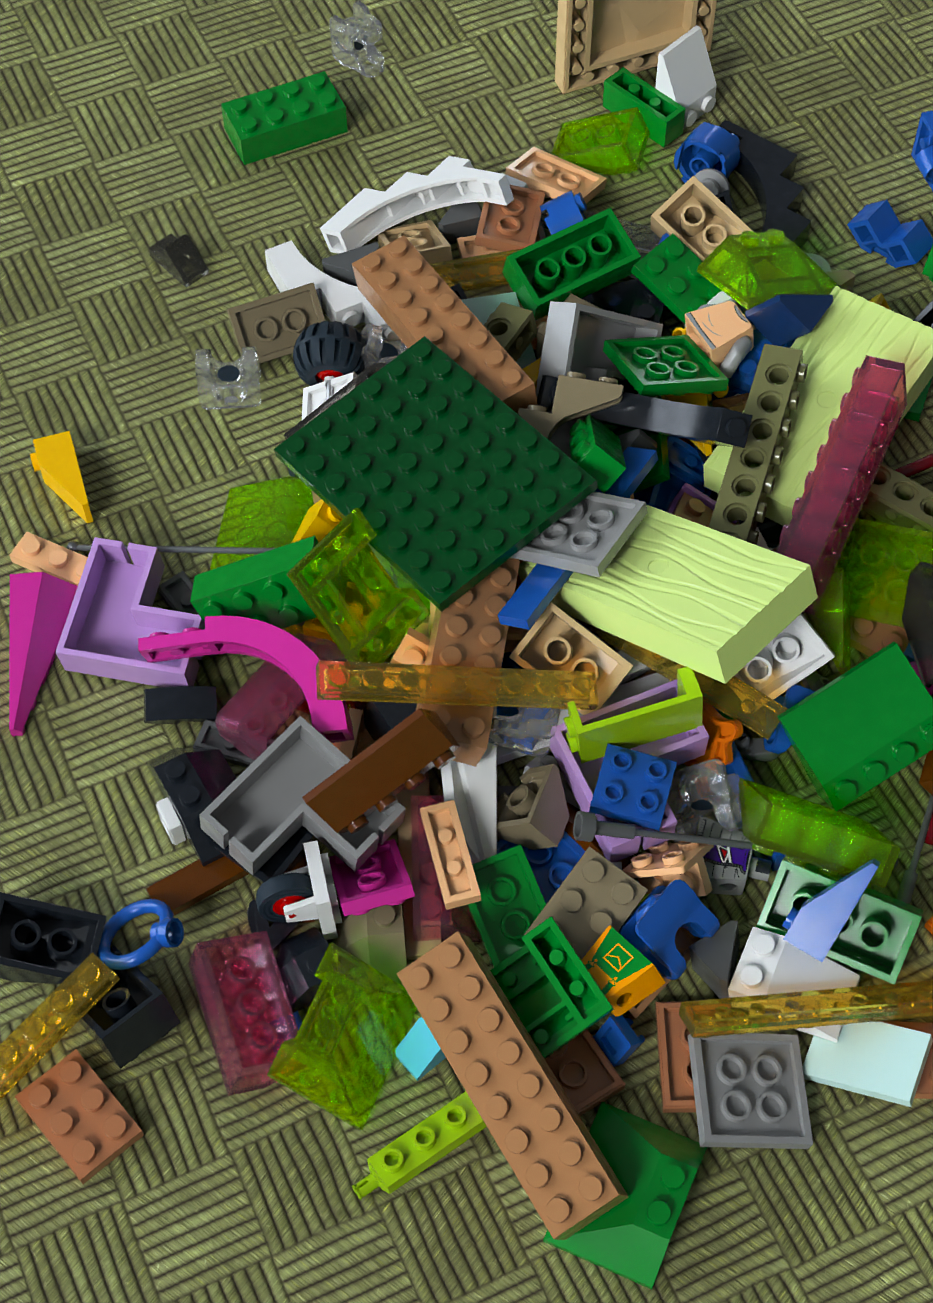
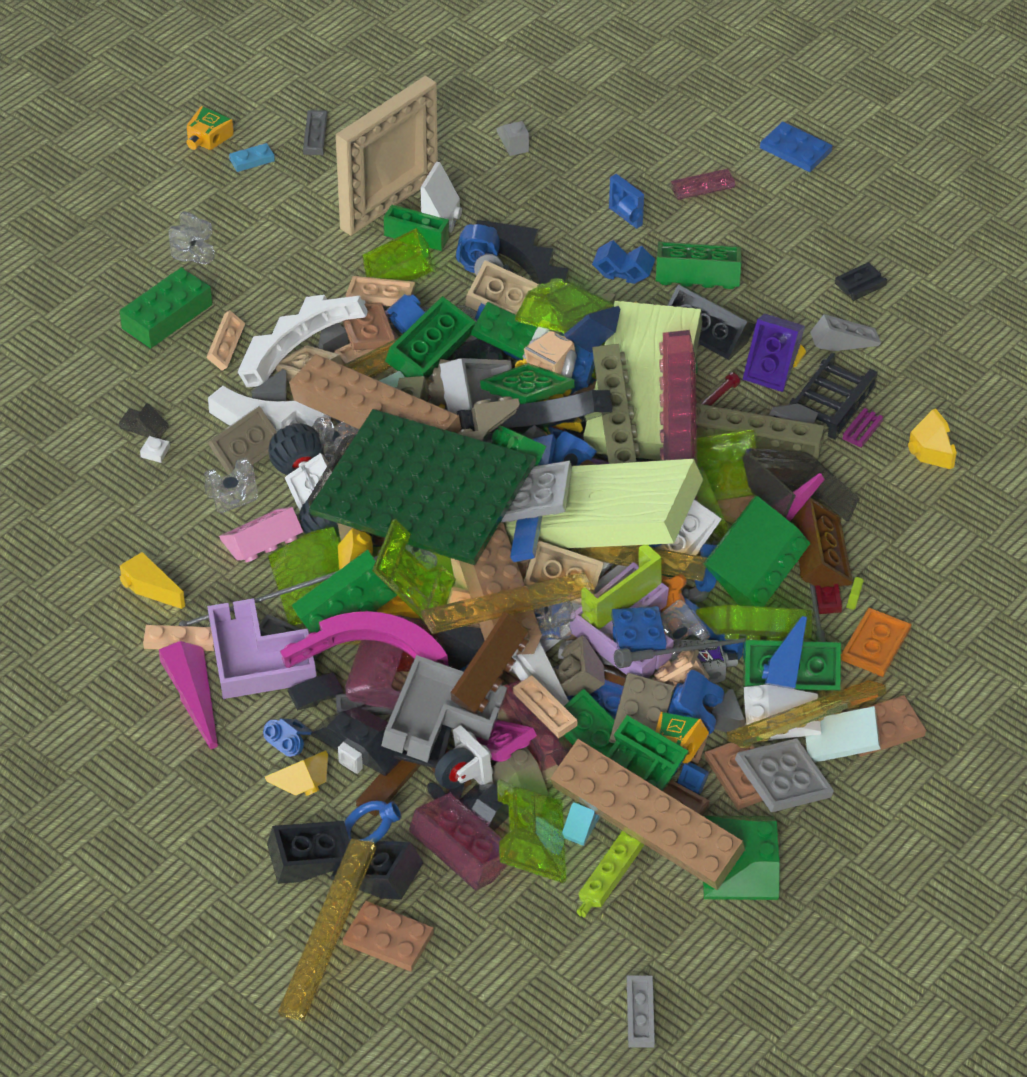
camera: 25 degrees left, 10 degrees down
(95, 824) = (302, 776): none -> yellow slope
(107, 755) = (286, 736): none -> blue bracket
(173, 297) = (155, 449): none -> white plate
(233, 457) = (262, 534): none -> bright pink slope
(333, 182) = (225, 340): none -> light nougat plate
(669, 485) = (572, 449): none -> blue piece
(830, 27) = (514, 137): none -> light grey slope

